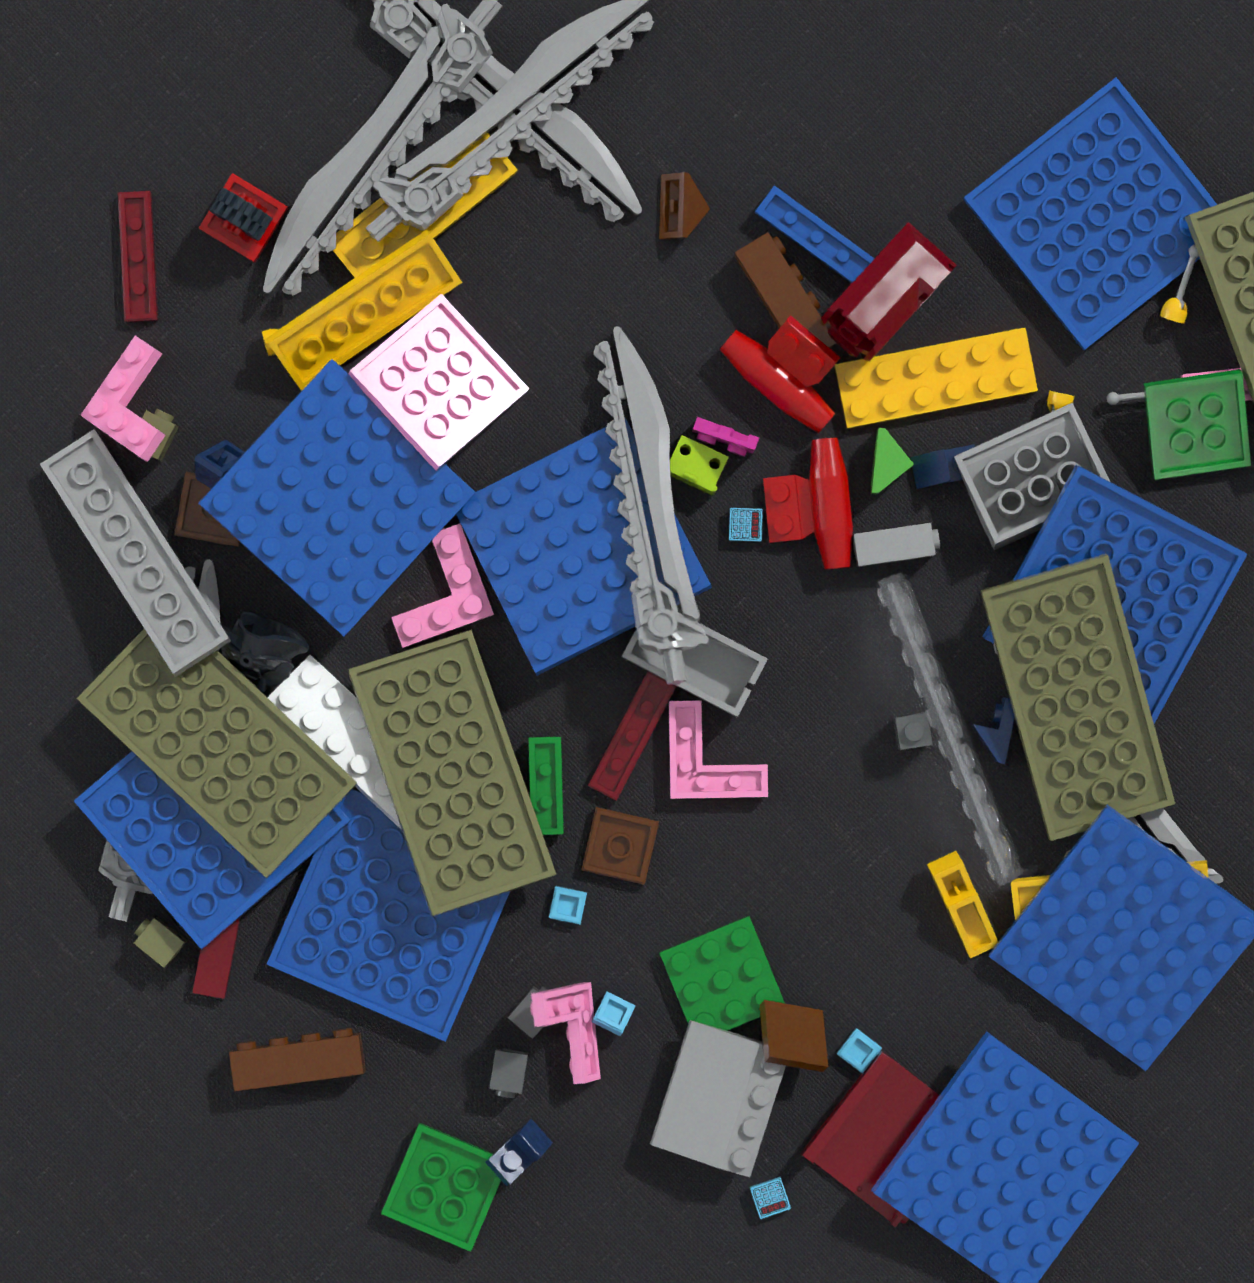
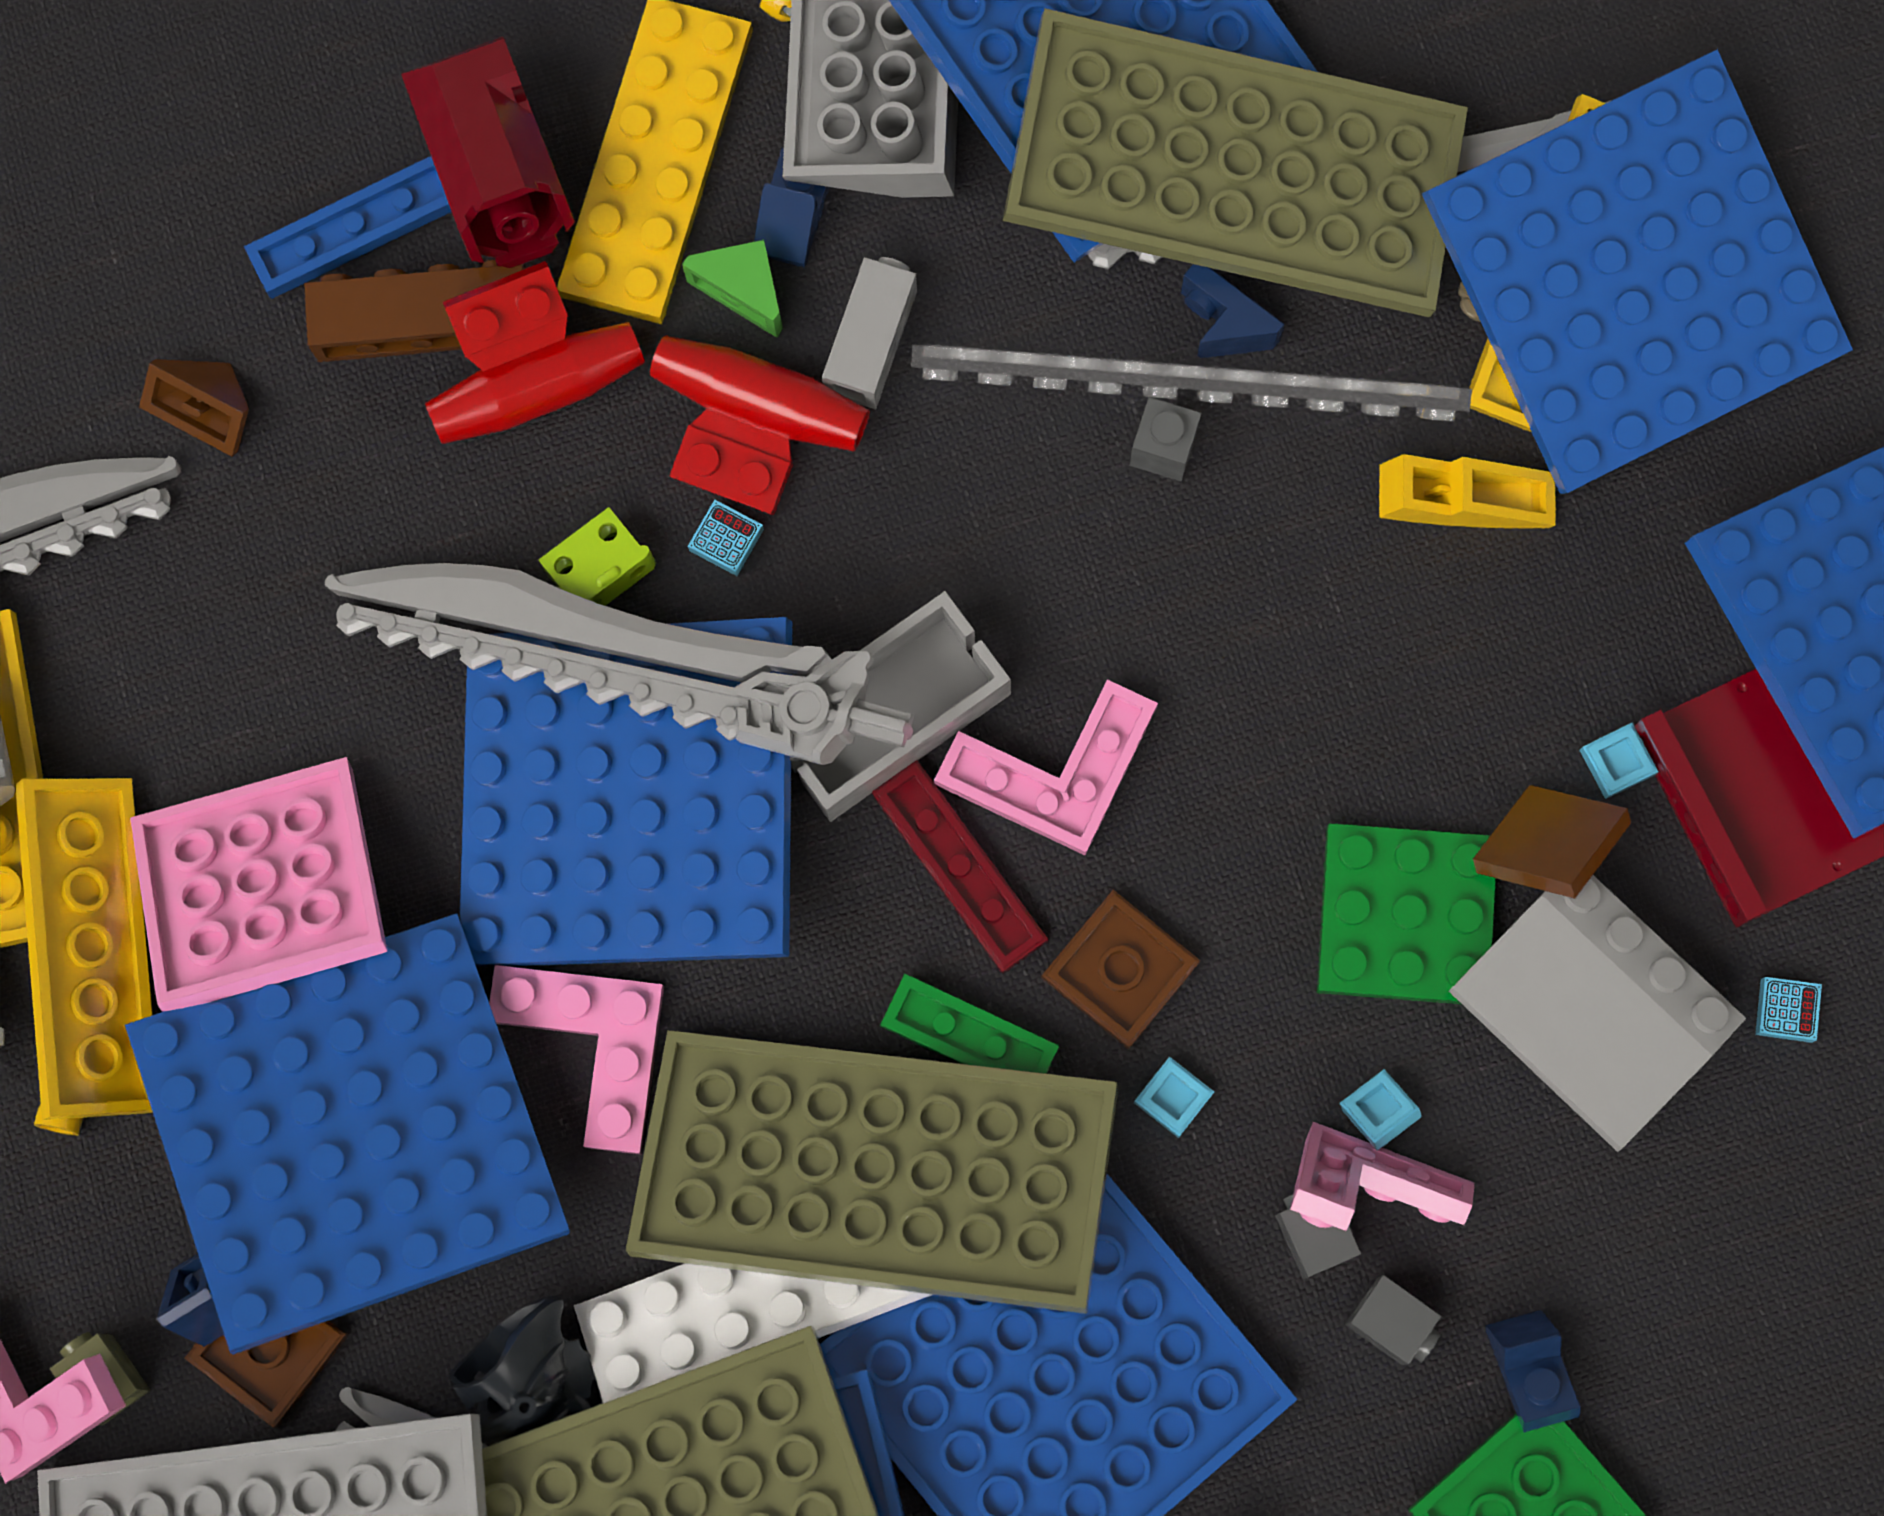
camera: 60 degrees left, 10 degrees down
(712, 432) = (575, 495): dark pink wing -> none

